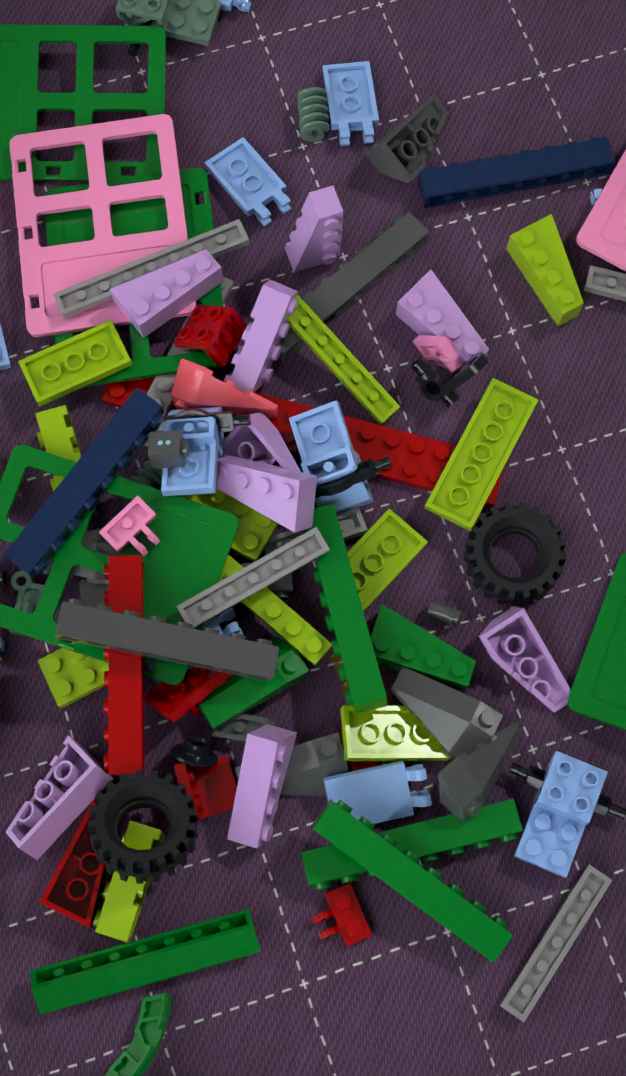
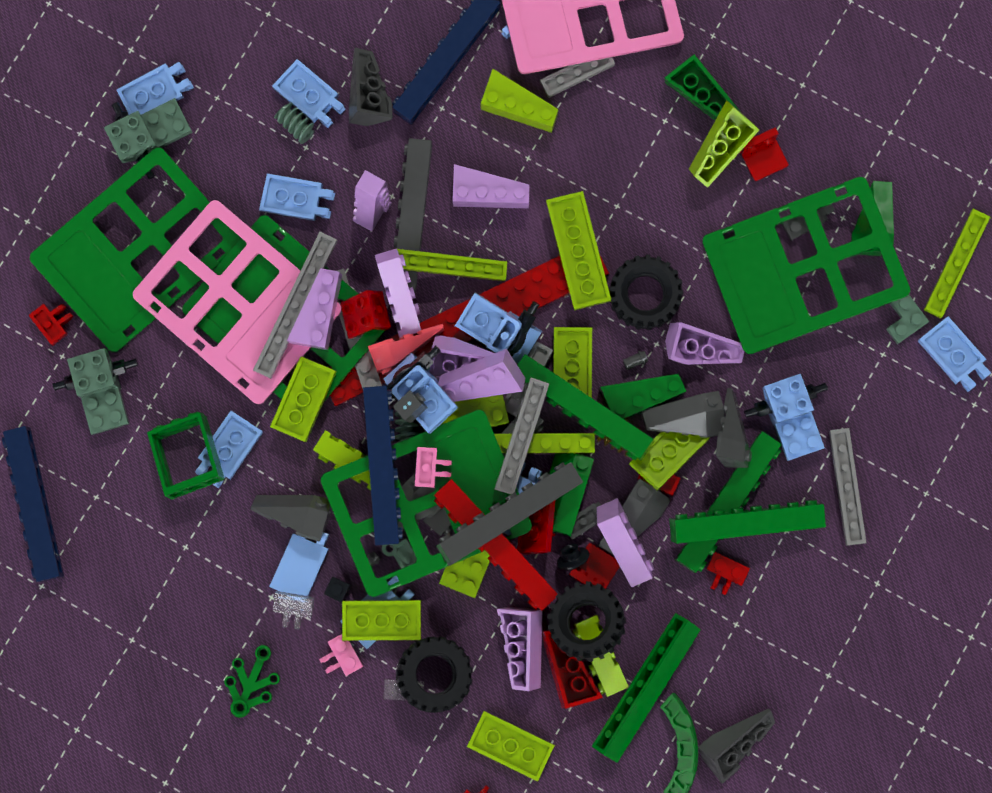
camera: 35 degrees left, 10 degrees up
(379, 791) = (687, 490): light blue tile -> none
(438, 349) = (501, 209): bright pink hinge -> none
(440, 383) = (521, 227): black piece -> none

